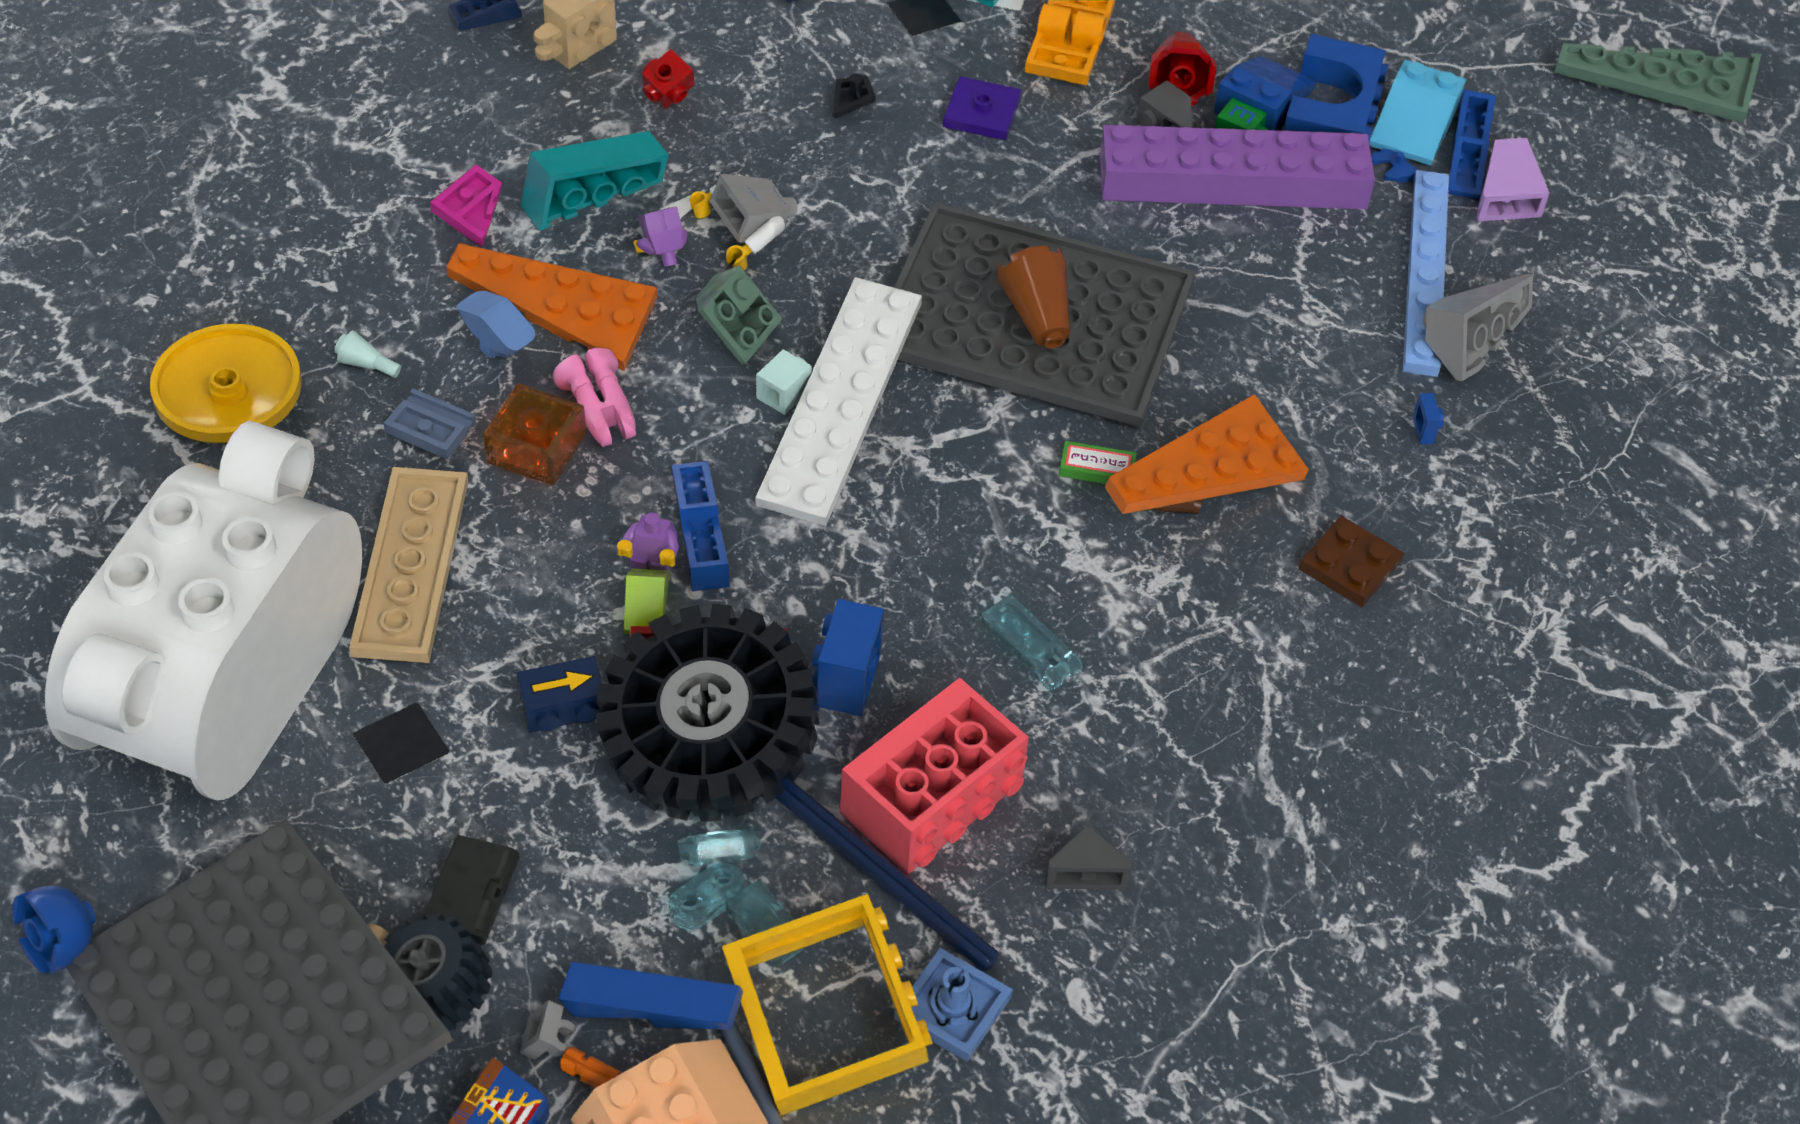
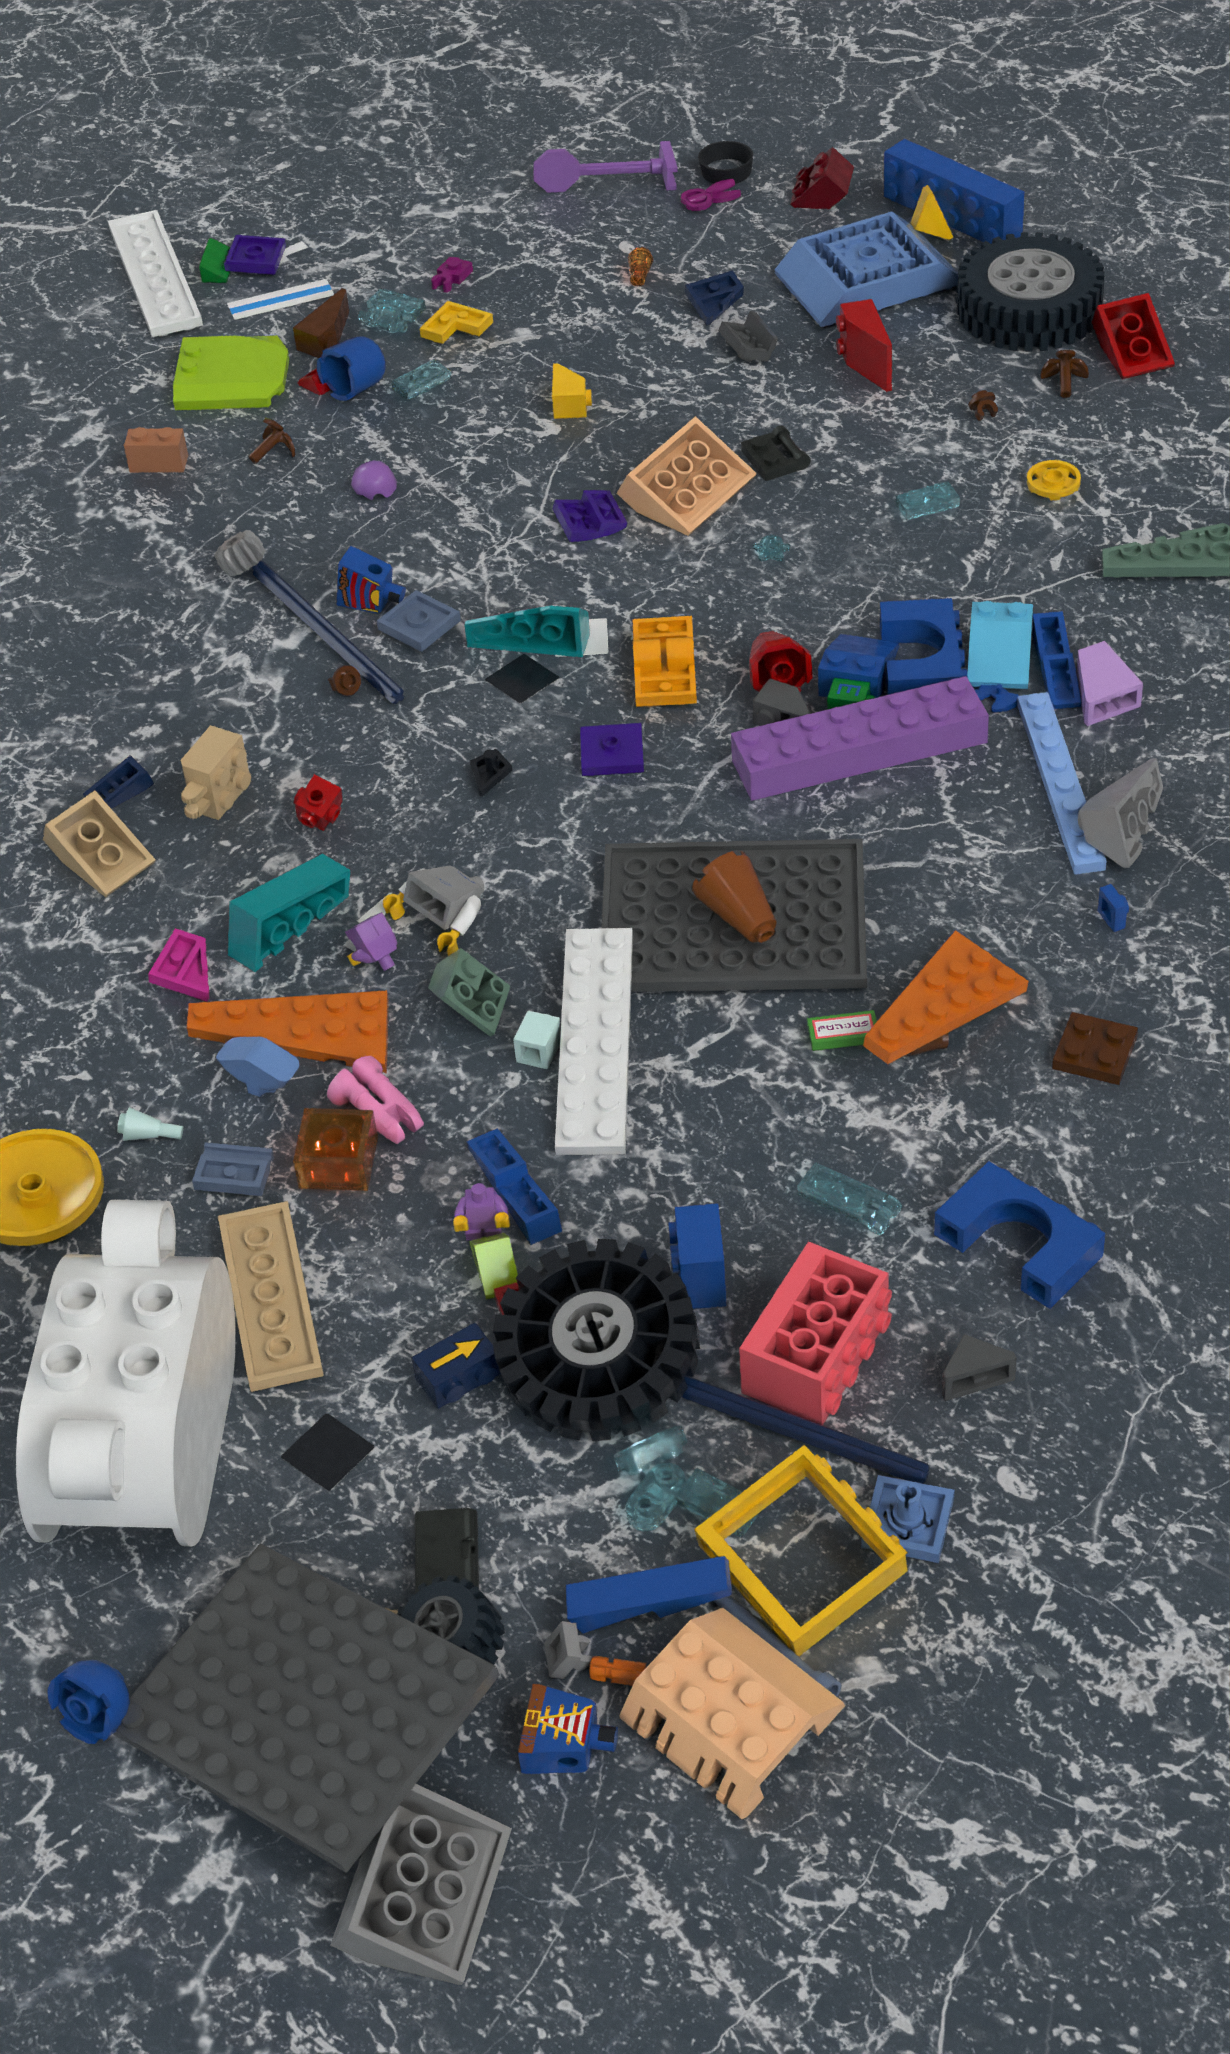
camera: 10 degrees left, 5 degrees down
(437, 59) = (96, 845): none -> tan slope
(1186, 689) = (999, 1197): none -> blue arch

